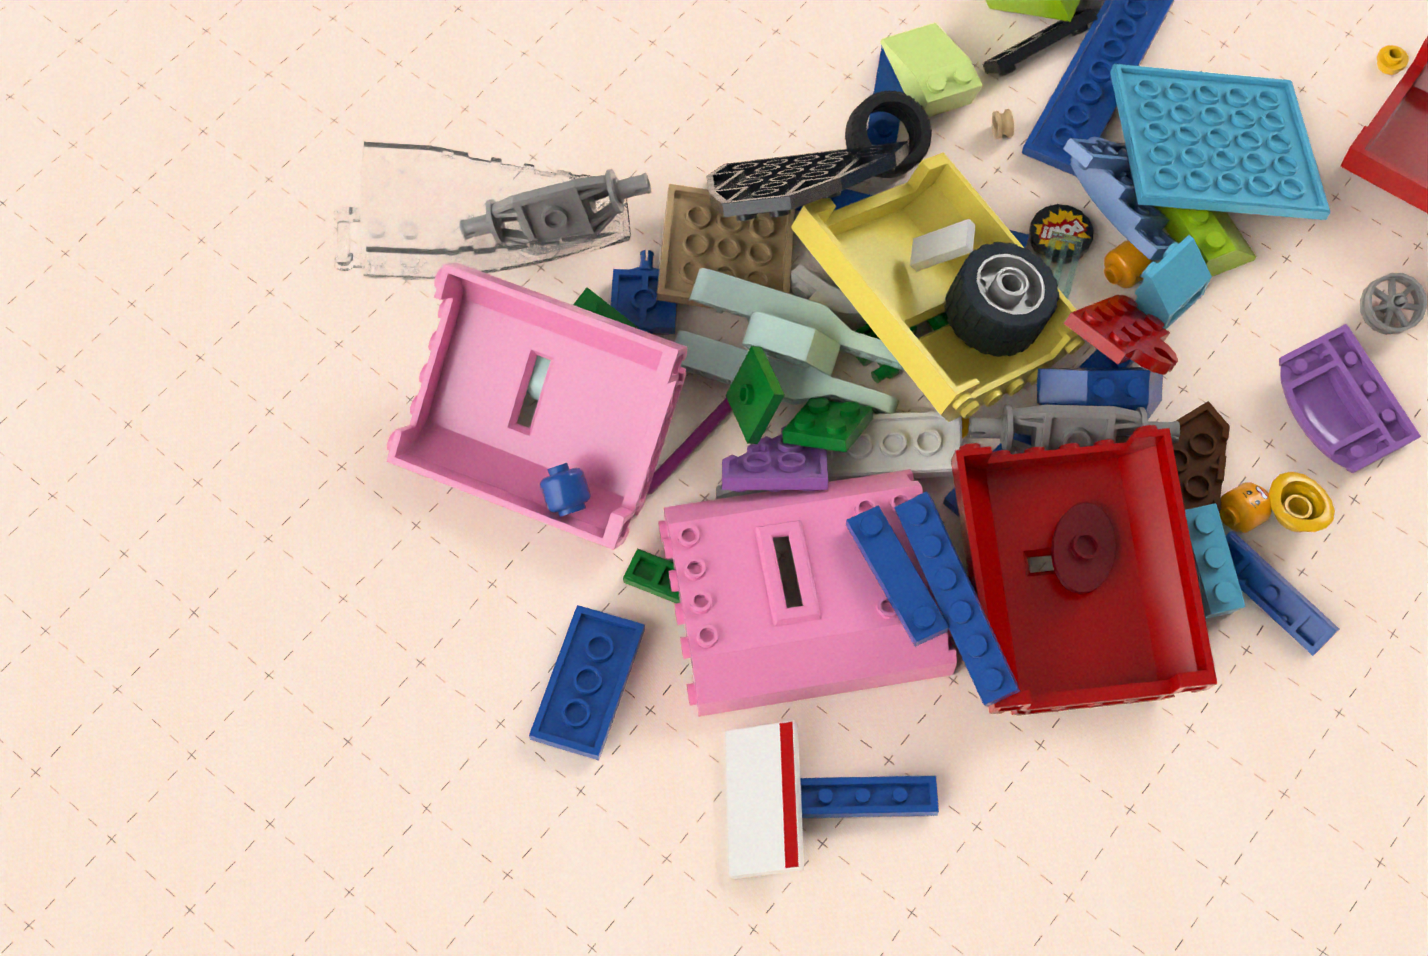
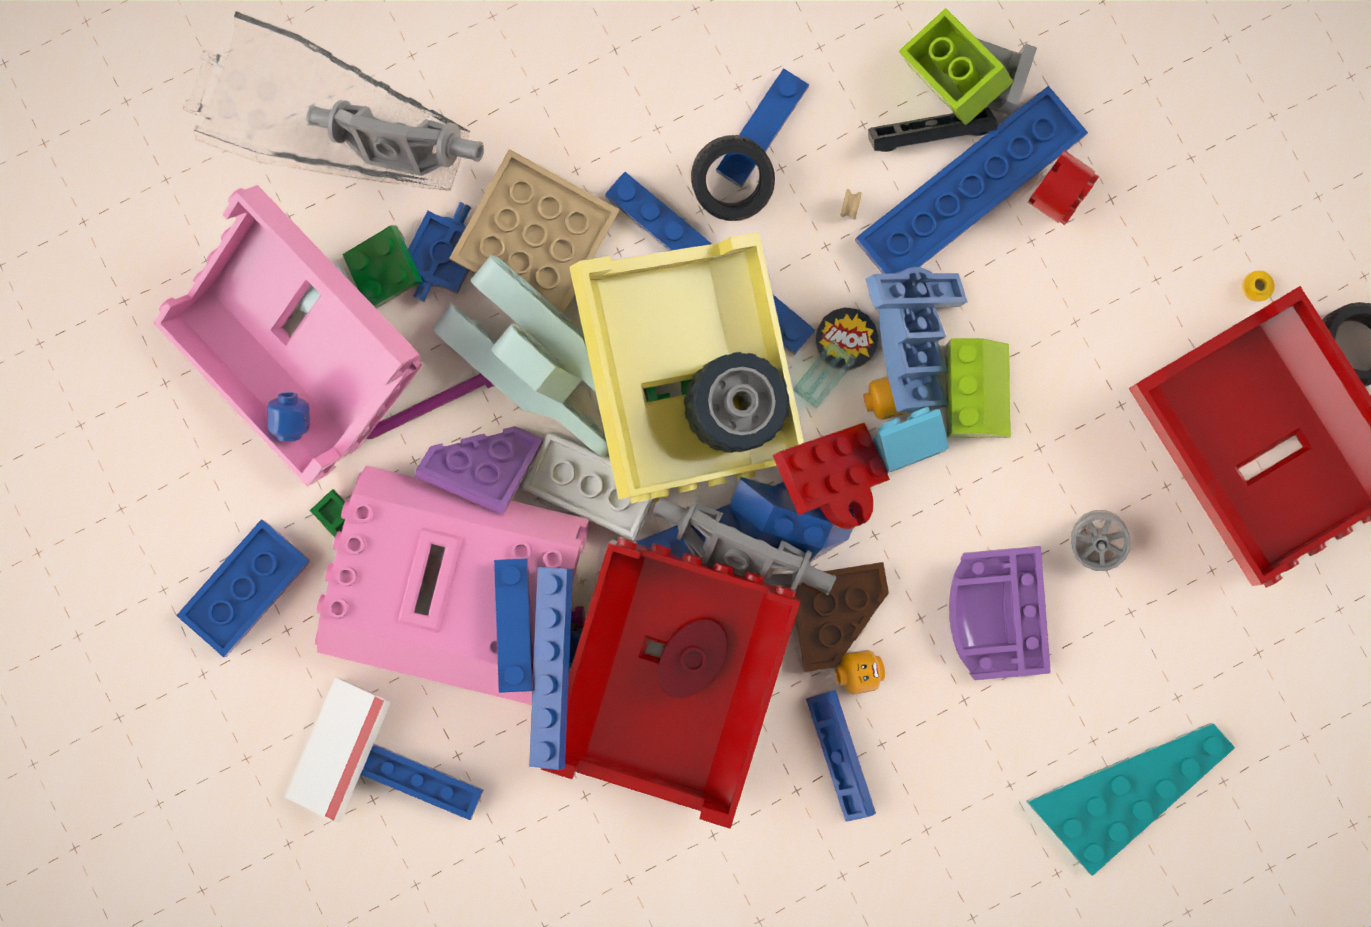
camera: 25 degrees right, 20 degrees up
(754, 395) = (482, 399): green plate -> none
(795, 180) = (601, 210): black piece -> none
(828, 424) = (538, 448): green plate -> none
(932, 69) = (810, 118): yellowish green slope -> none
(942, 245) = (707, 330): white tile -> none
(1183, 38) = (1062, 187): none -> red brick
(1213, 562) = (795, 710): medium azure arch -> none
(1217, 142) = (1031, 313): medium azure tile -> none
(1300, 503) = (906, 692): yellow hat -> none

